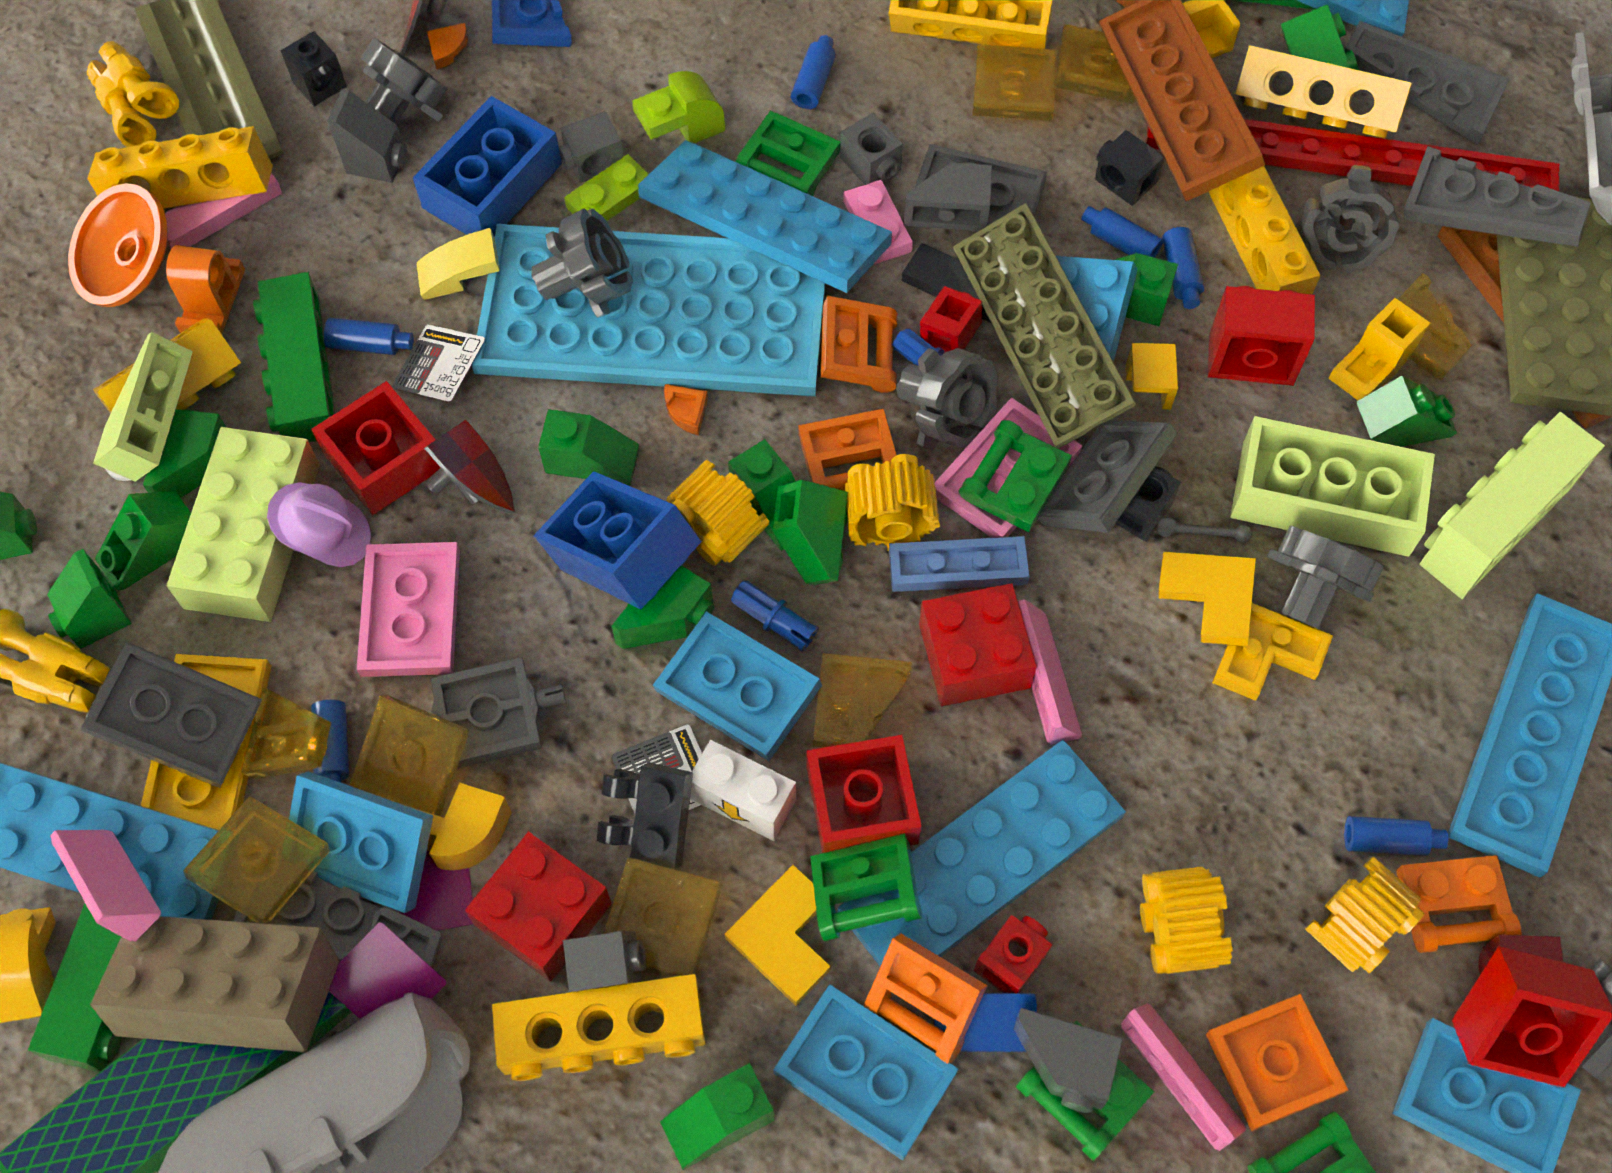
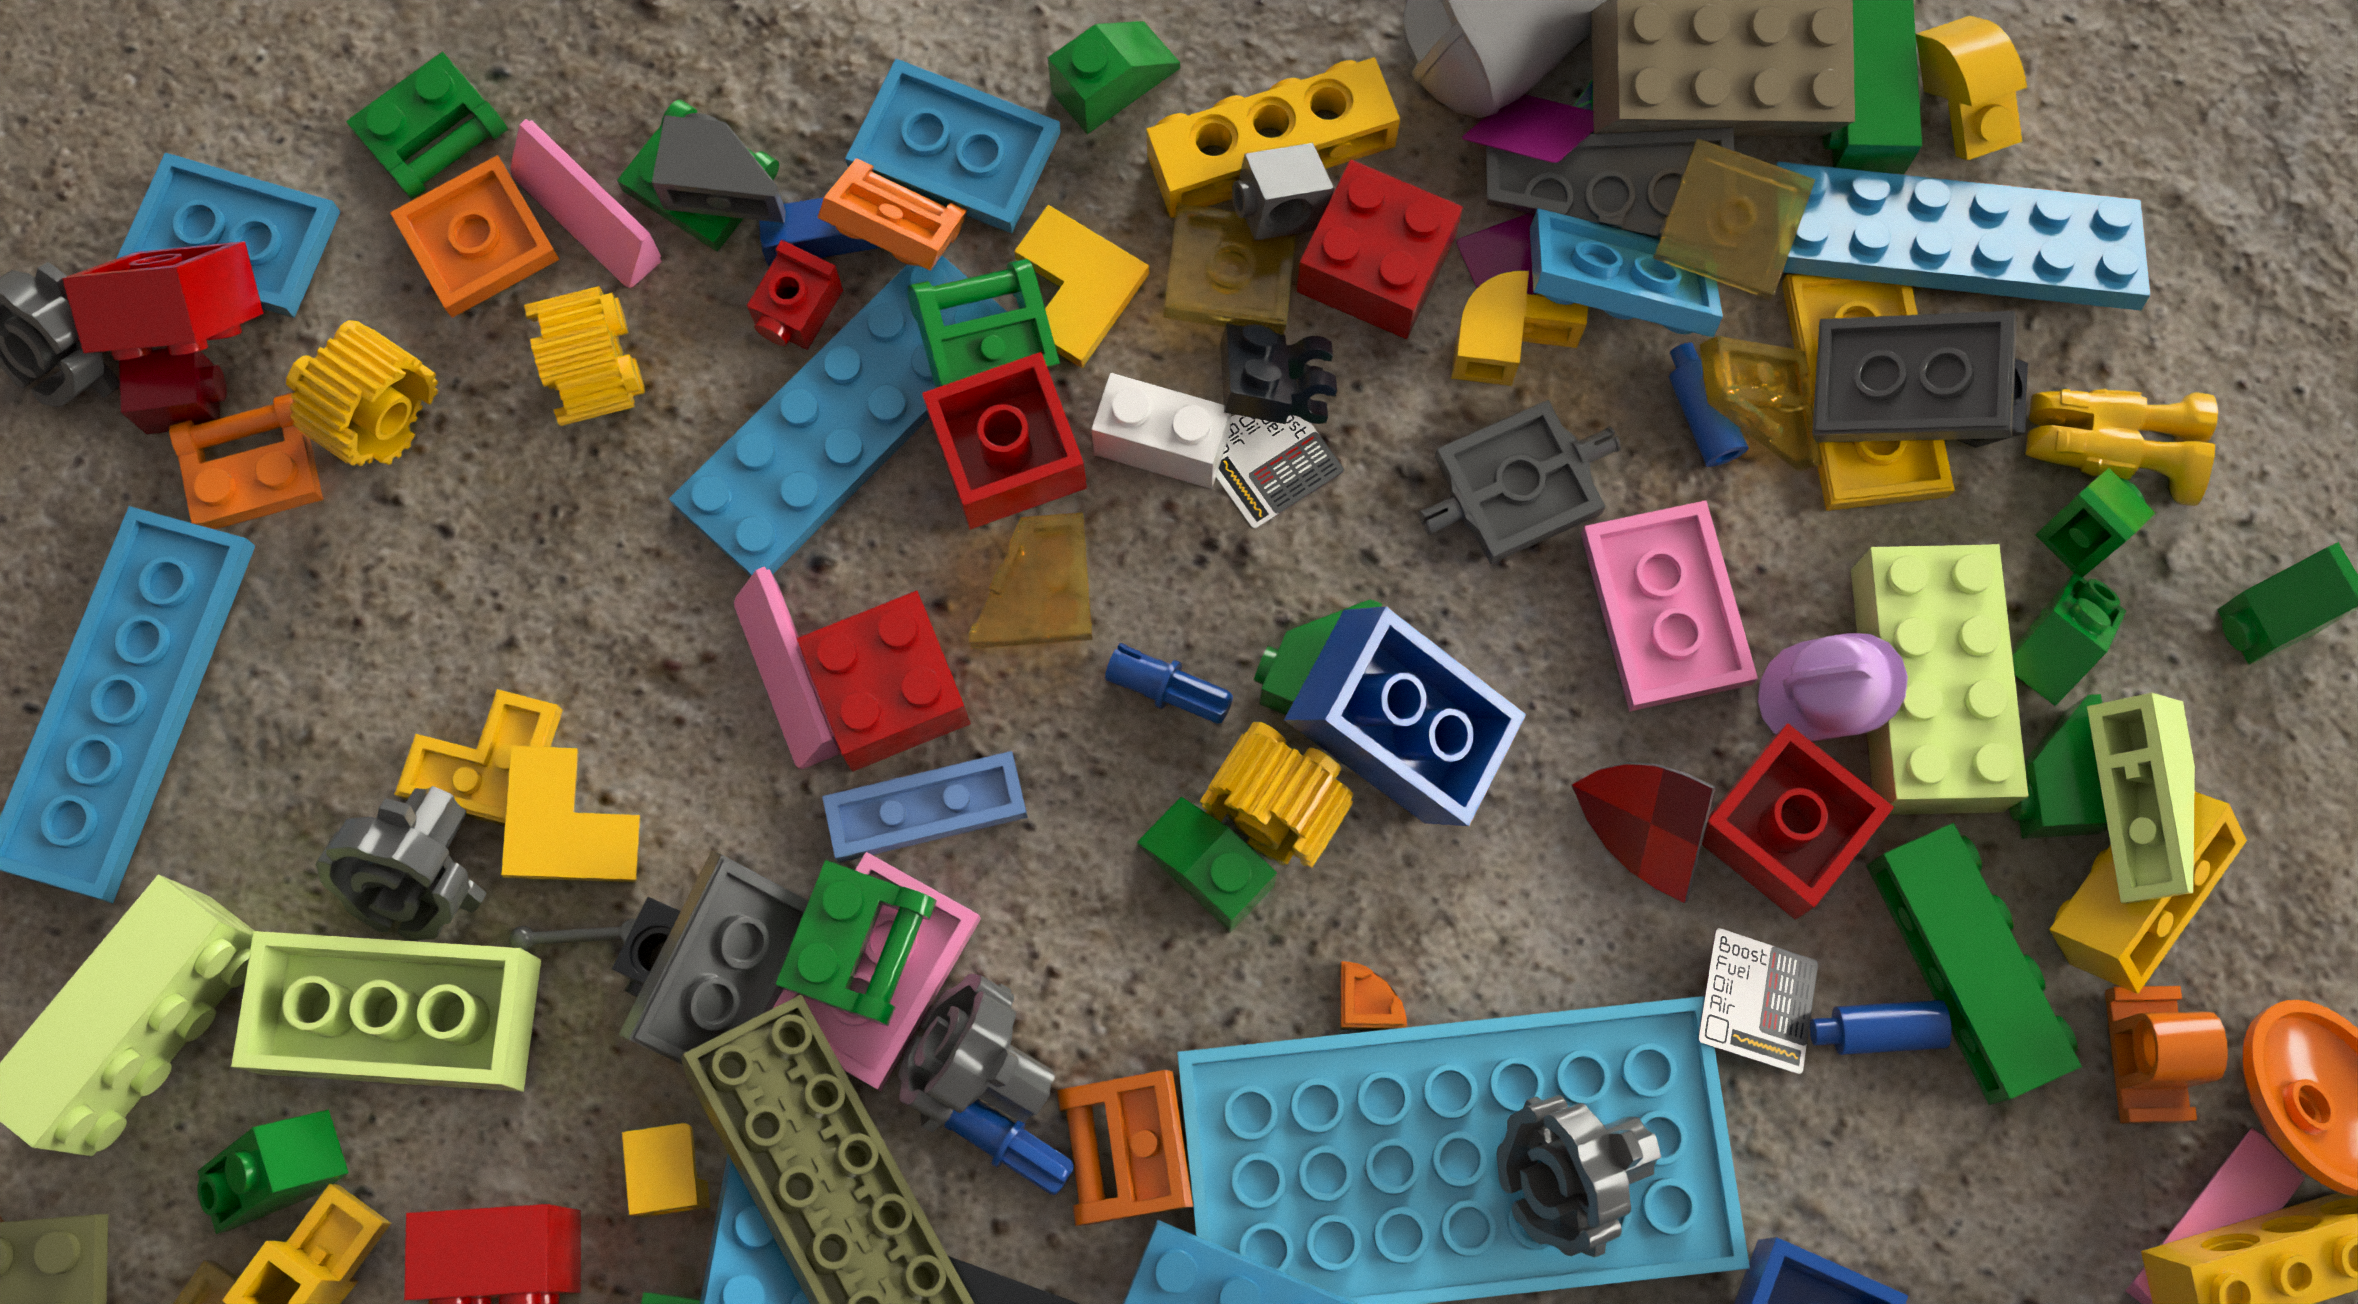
camera: 170 degrees right, 10 degrees up
(107, 881) = (1900, 140): bright pink slope -> none
(409, 756) = (1596, 396): clear yellow plate -> none
(455, 261) = (1787, 1182): light yellow slope -> none
(582, 444) = (1492, 888): green slope -> none
(737, 685) = (1197, 568): dark azure plate -> none
(811, 528) = (1136, 806): green slope -> none
(844, 442) = (1116, 975): orange plate -> none
(891, 502) = (1029, 857): yellow brick -> none
(951, 320) = (992, 1186): red brick -> none
(1392, 836) = (324, 528): blue cylinder -> none

